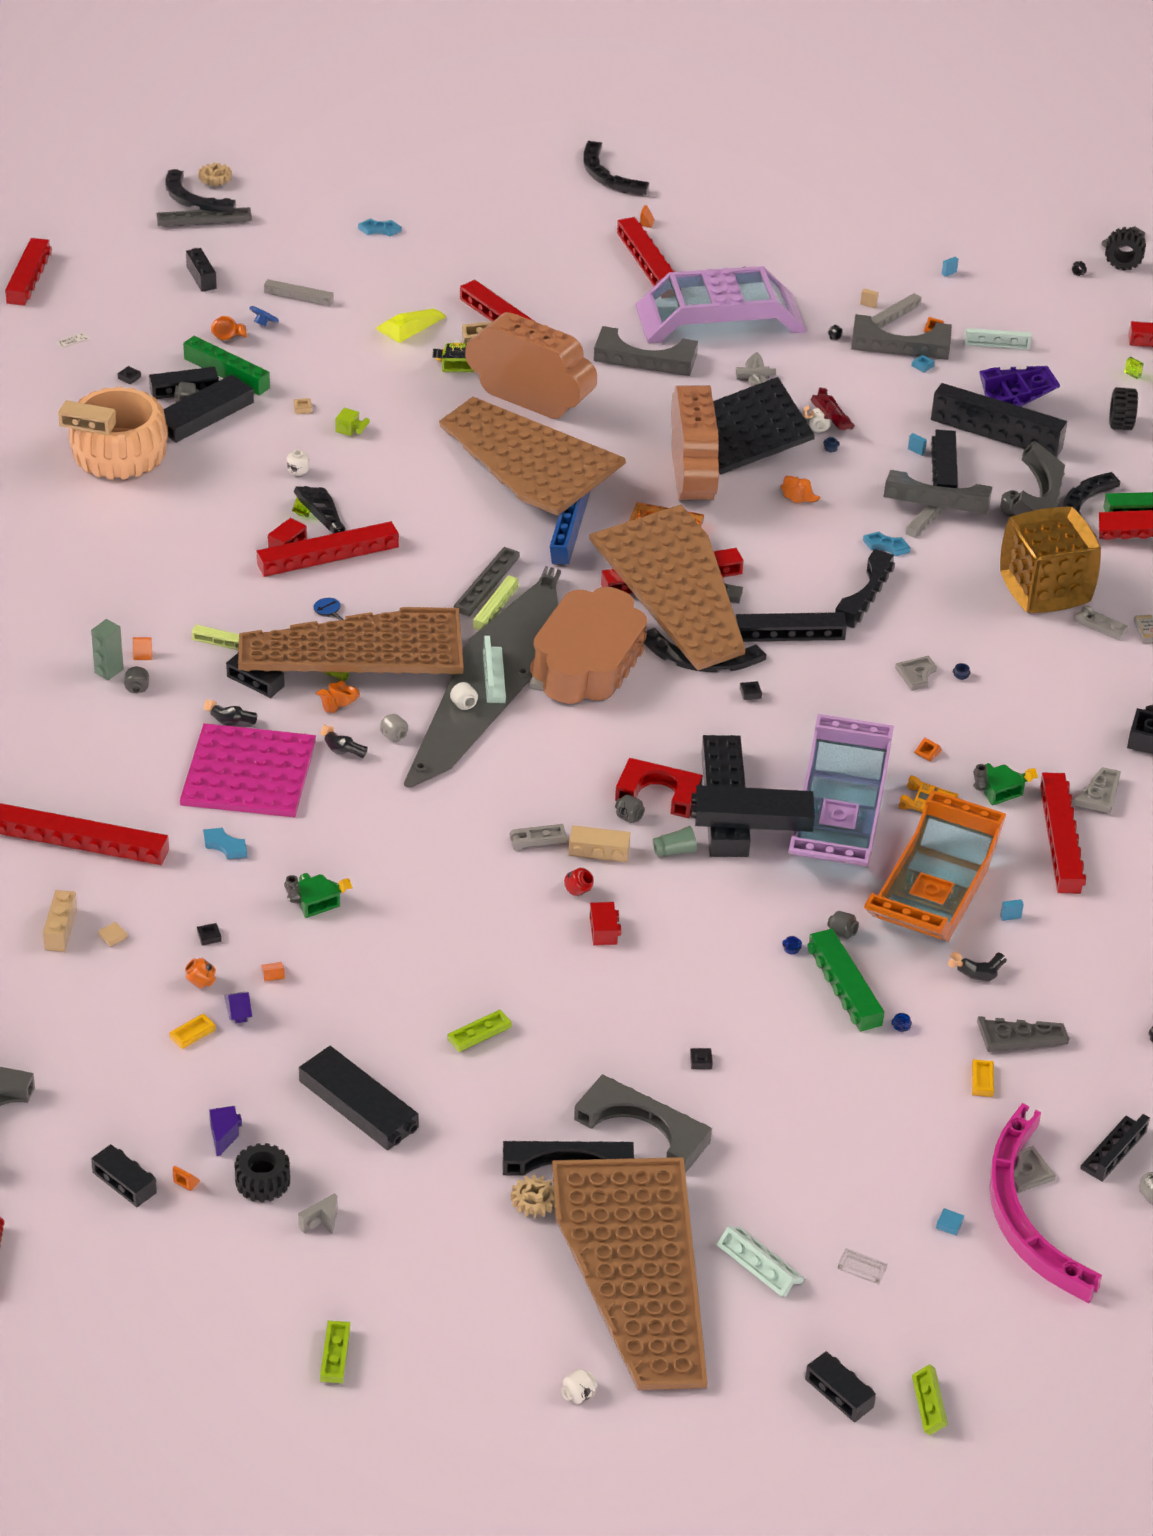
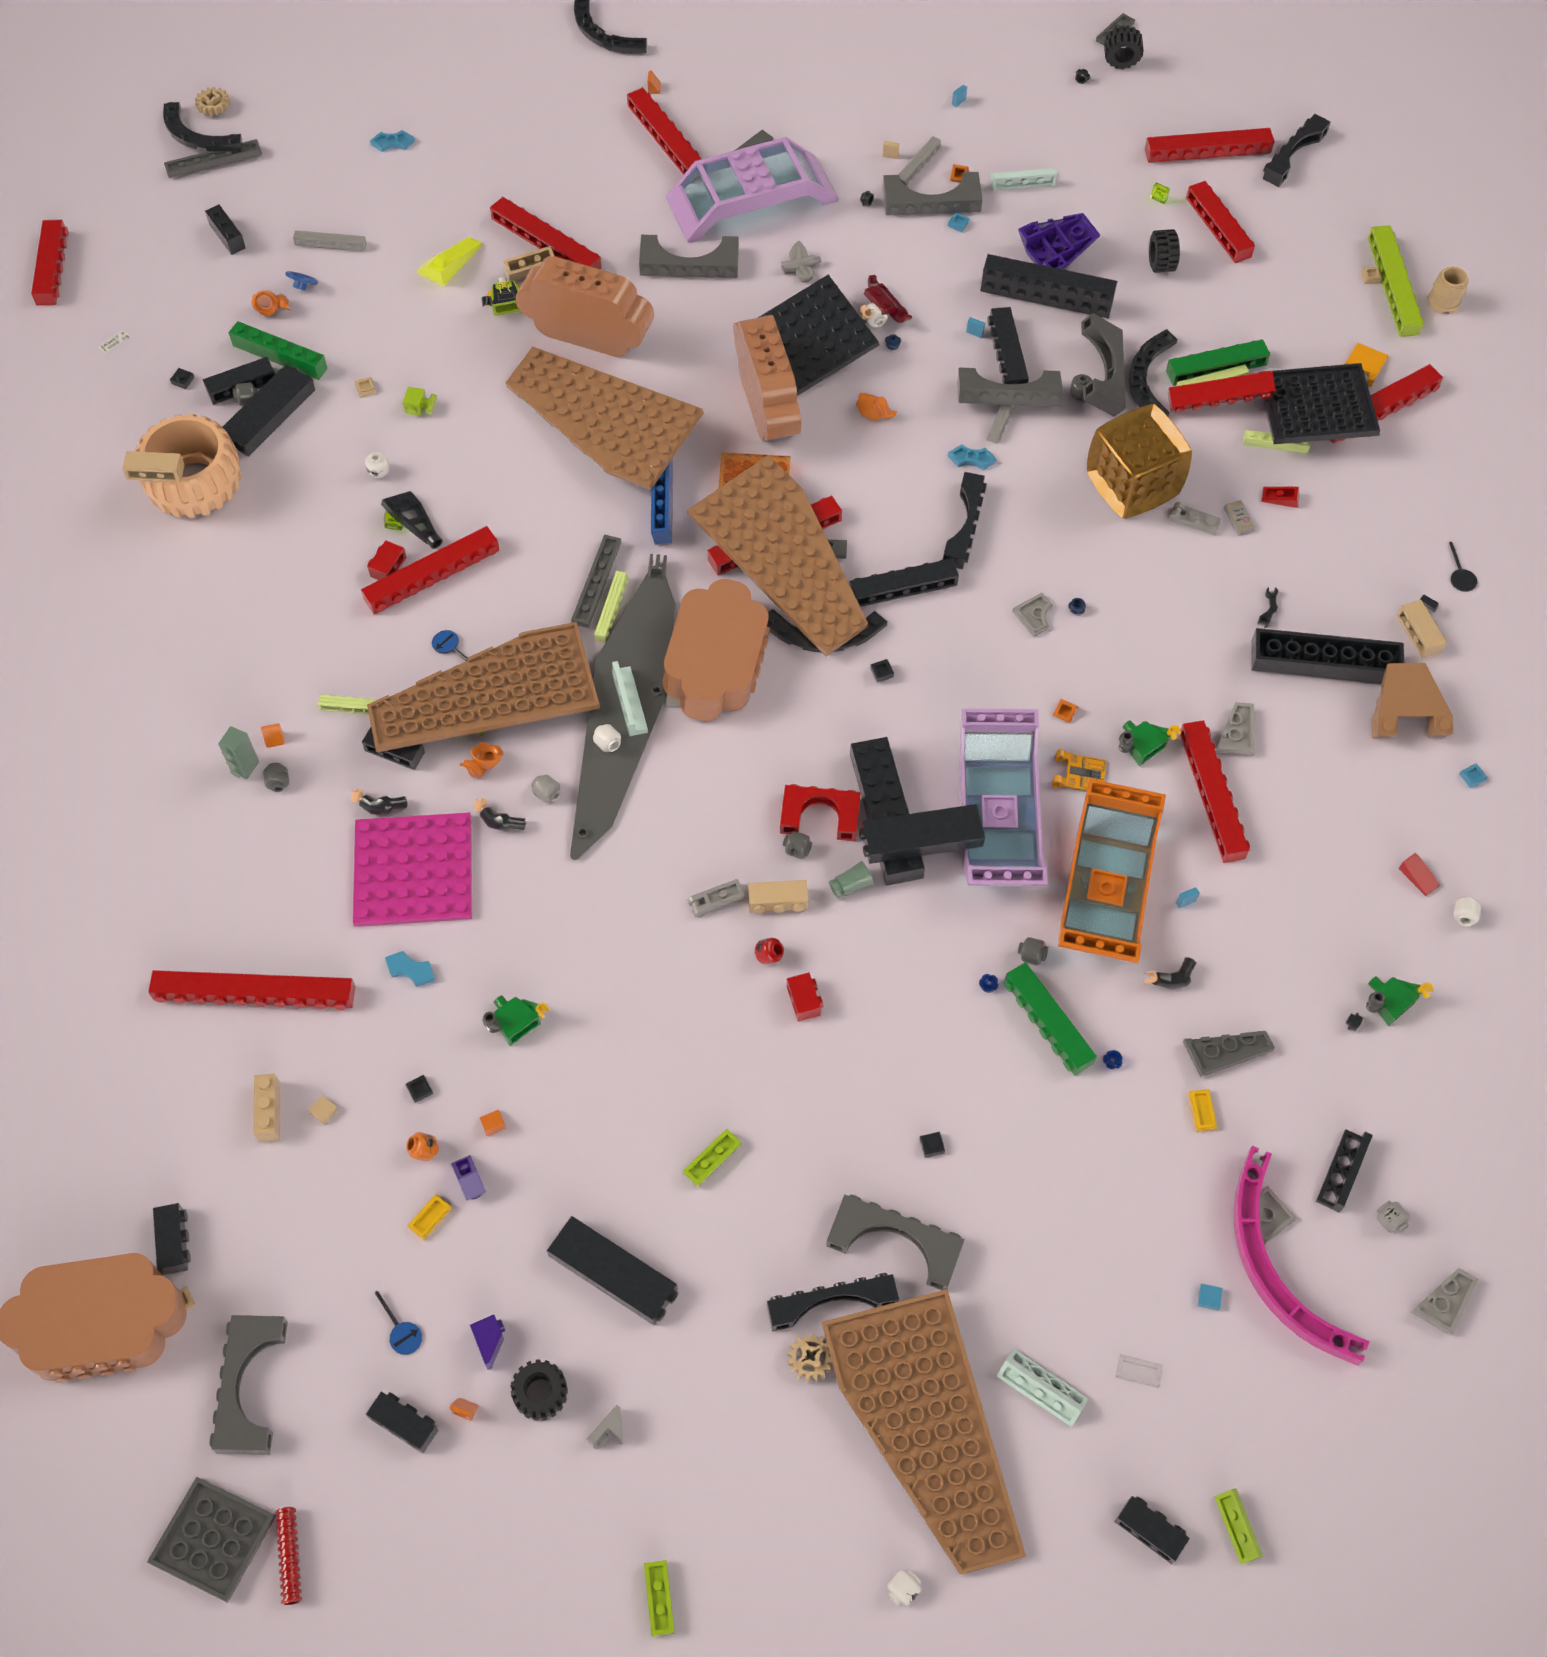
camera: 10 degrees left, 20 degrees up
(143, 1116) = (404, 1337): none -> blue piece

